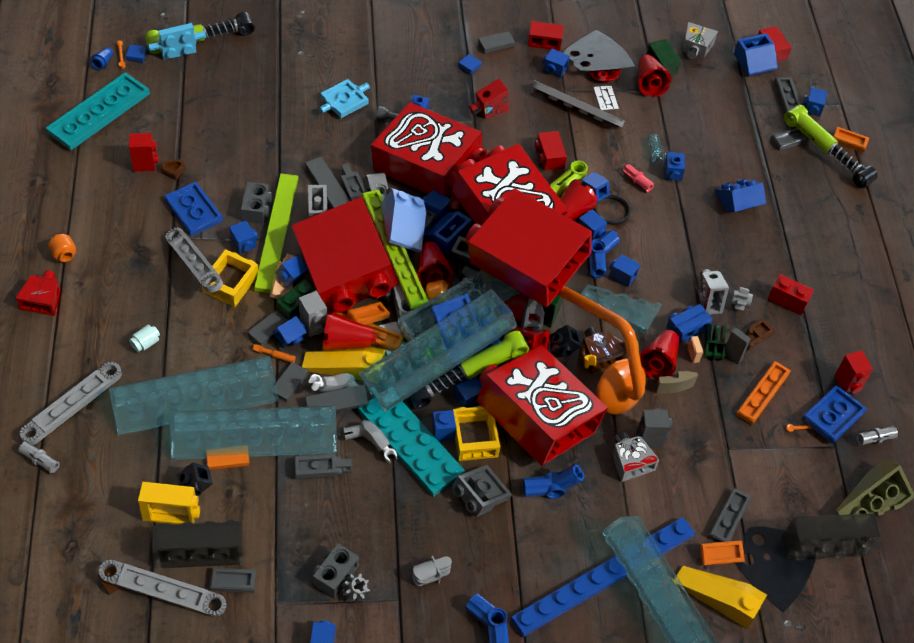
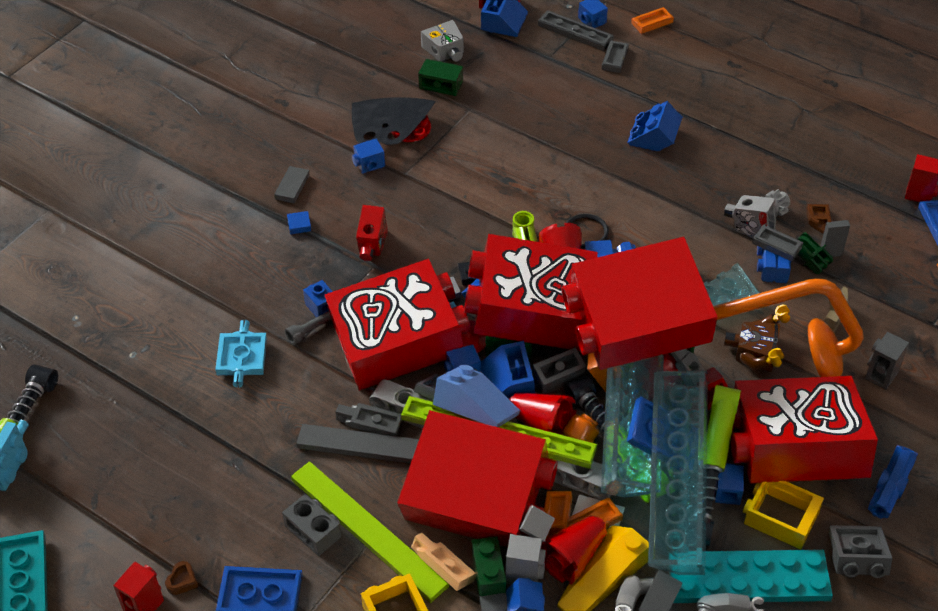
camera: 45 degrees left, 5 degrees down
(243, 237) = (351, 566): blue brick -> none
(292, 271) = (448, 545): blue brick -> none
(317, 199) = (374, 467): light grey brick -> none
(334, 299) = (536, 523): none -> light grey tile
(444, 425) = (756, 531): blue brick -> none
(545, 35) = (326, 142): red brick -> none
(551, 150) = (475, 226): red brick -> none
(565, 341) = (733, 359): black brick -> none
(583, 107) = (428, 175): light grey plate -> none
(598, 184) = (552, 216): blue brick -> none
(606, 97) = (443, 149): white sticker -> none
(633, 457) = (901, 399): light grey torso -> none
(638, 177) = (567, 186): coral axle -> none
(652, 76) = (457, 96): red cone -> none
(656, 147) = (543, 151): clear light blue bar -> none
(660, 355) = (802, 308): red cone -> none
(674, 166) = (579, 152): blue brick -> none
(695, 349) = (808, 271): light nougat tile -> none
(697, 313) = (777, 243): none -> dark grey tile
(763, 393) = (890, 258): orange tile -> none
(790, 294) = (799, 167): red brick -> none
(799, 118) = (607, 33): piece -> none

